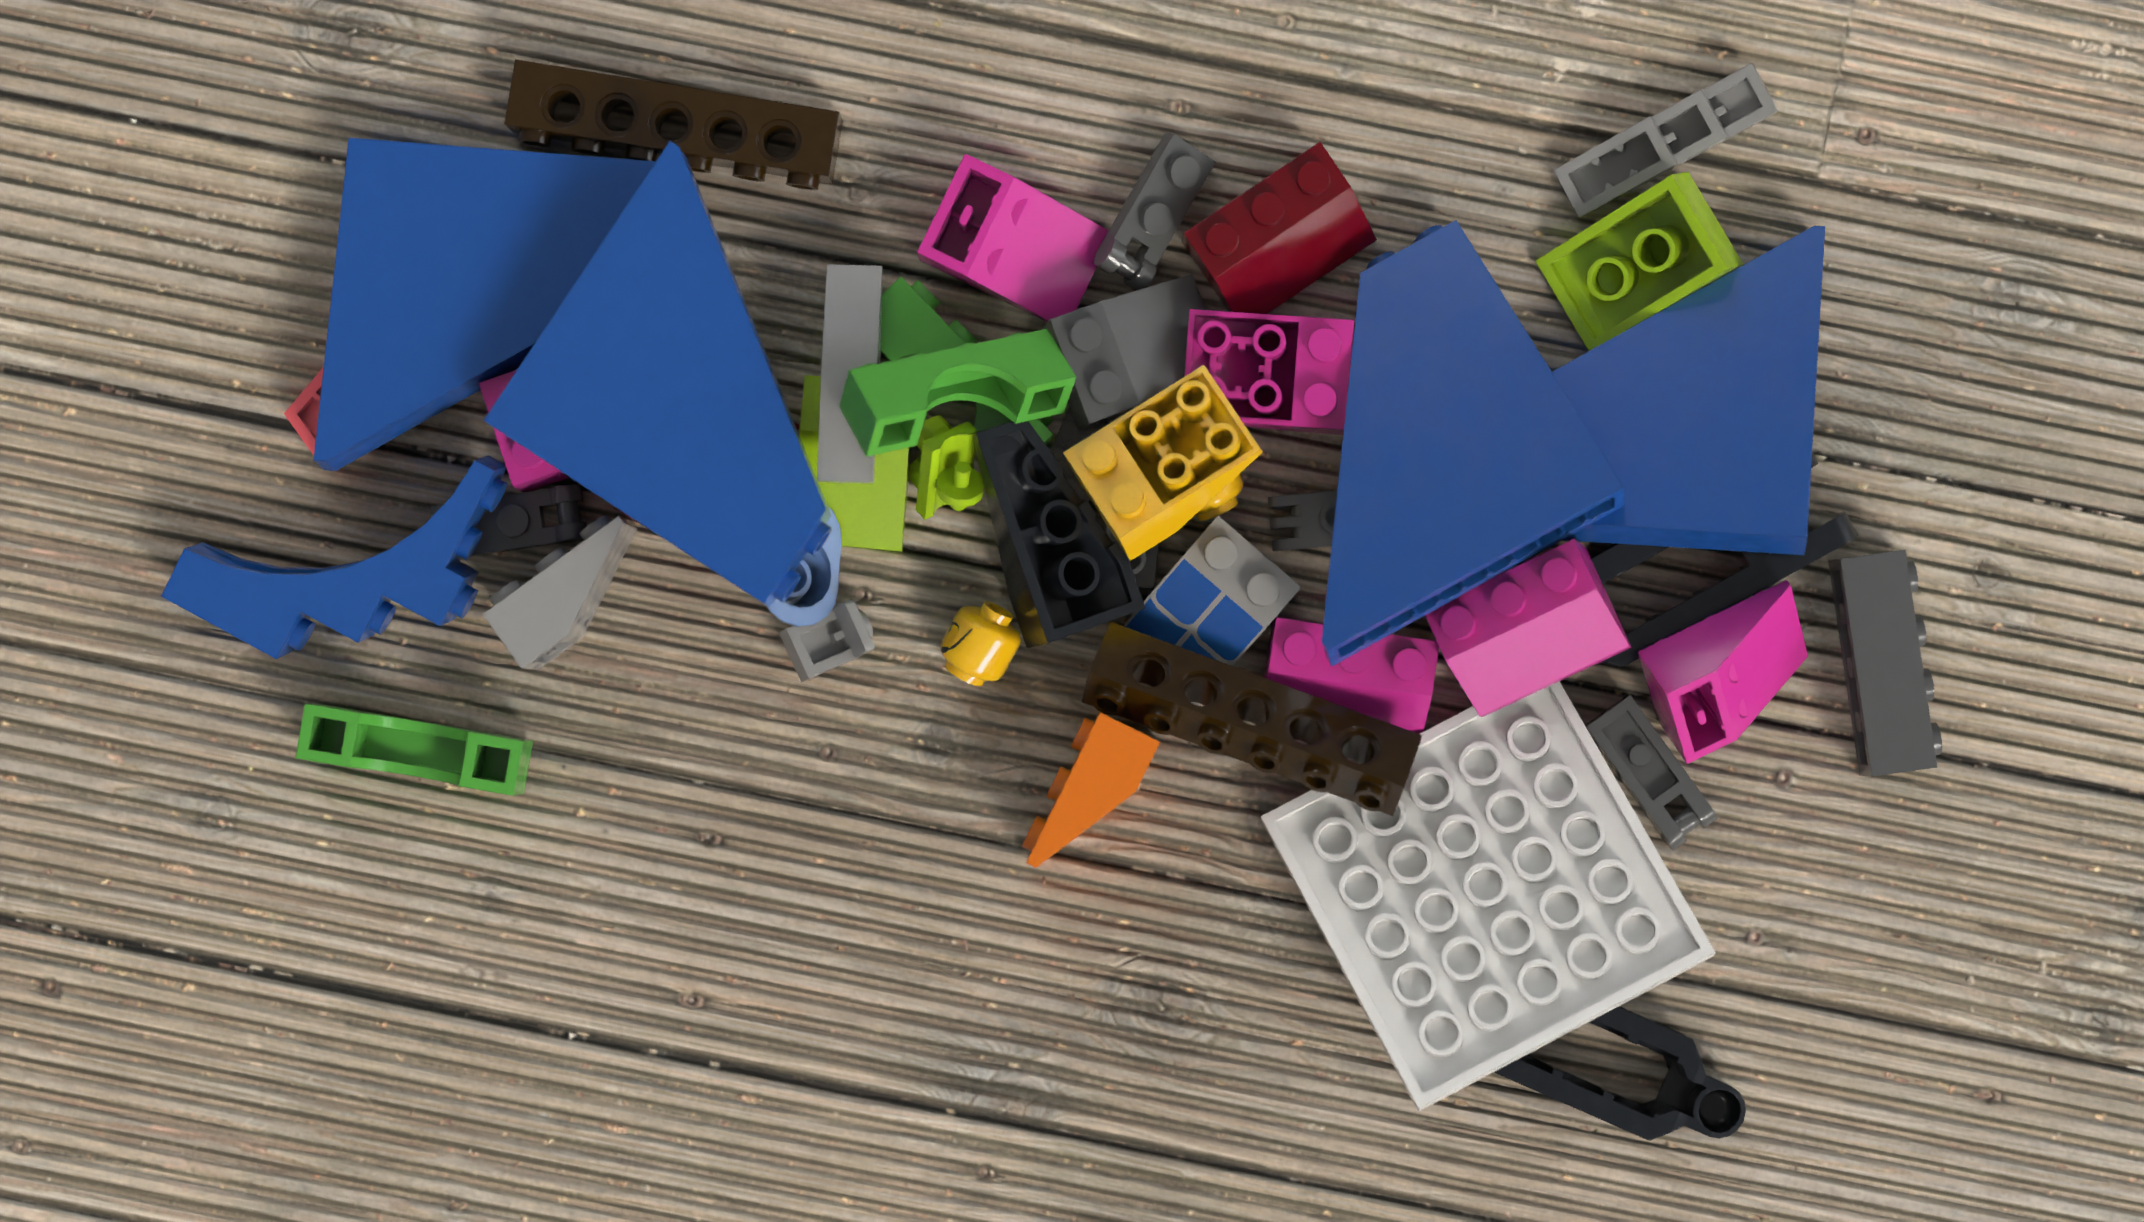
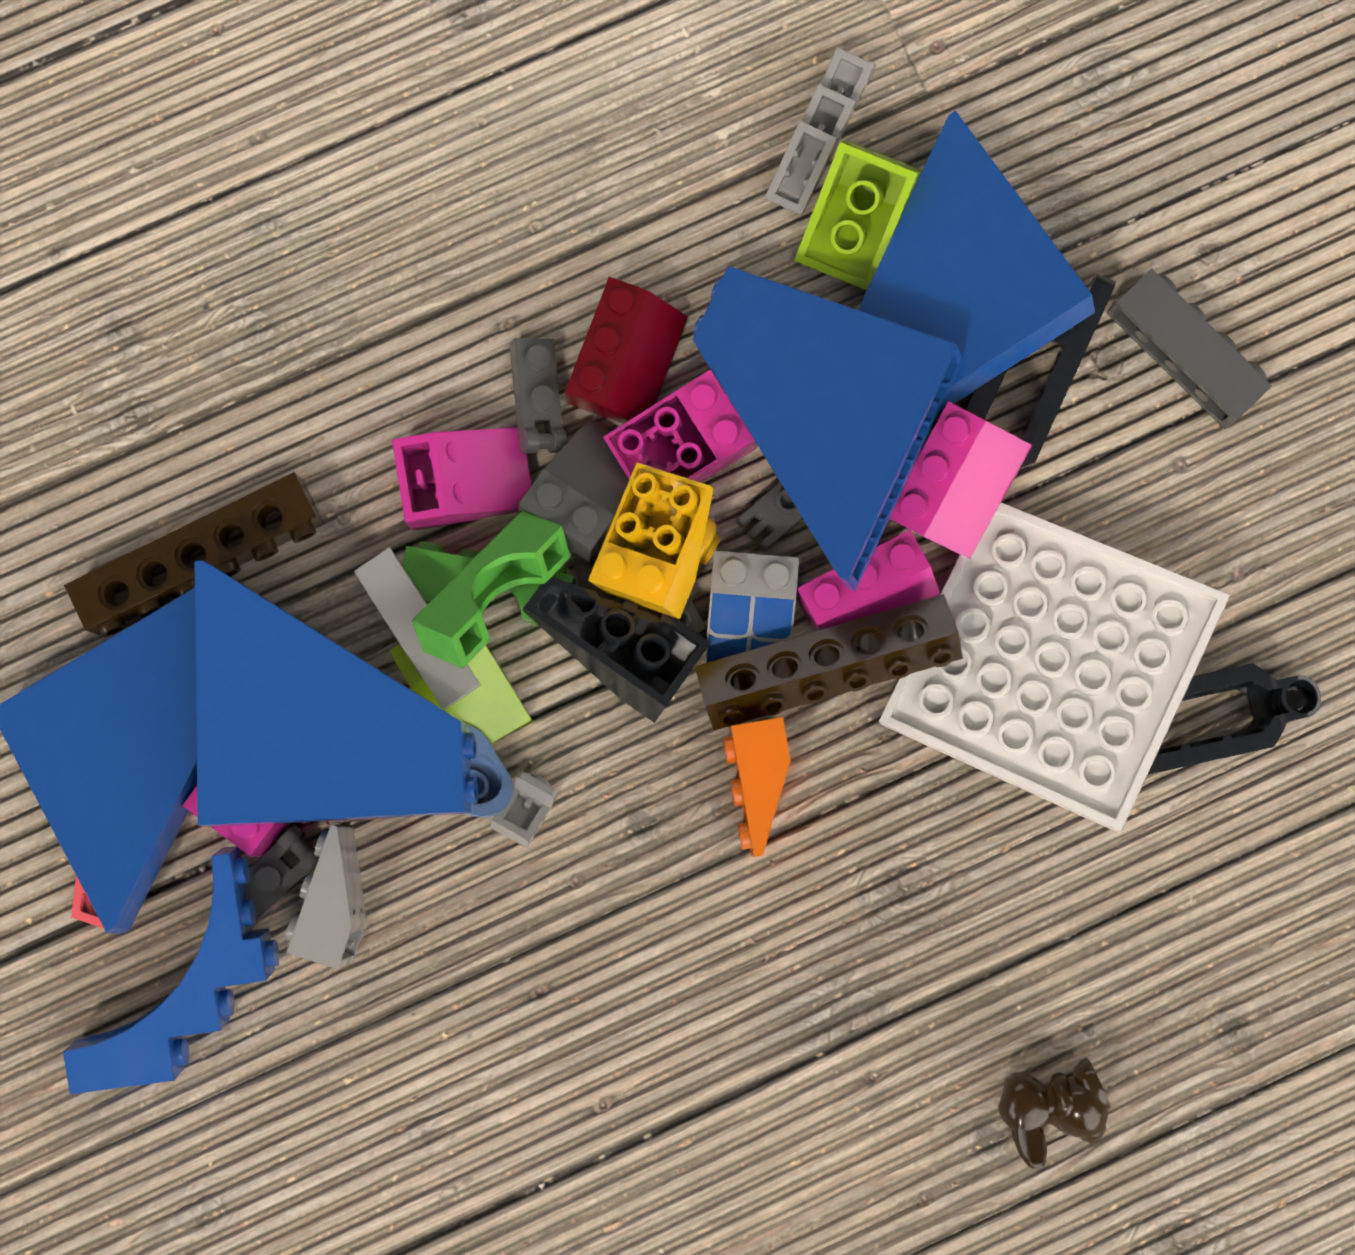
camera: 35 degrees left, 5 degrees down
(414, 748) = (305, 1073): bright green arch -> none
(945, 468) = (521, 645): lime hips -> none
(980, 643) = (622, 741): yellow head -> none
(1649, 770) = (1098, 517): dark grey plate -> none
(1724, 670) = (1096, 422): dark pink slope -> none

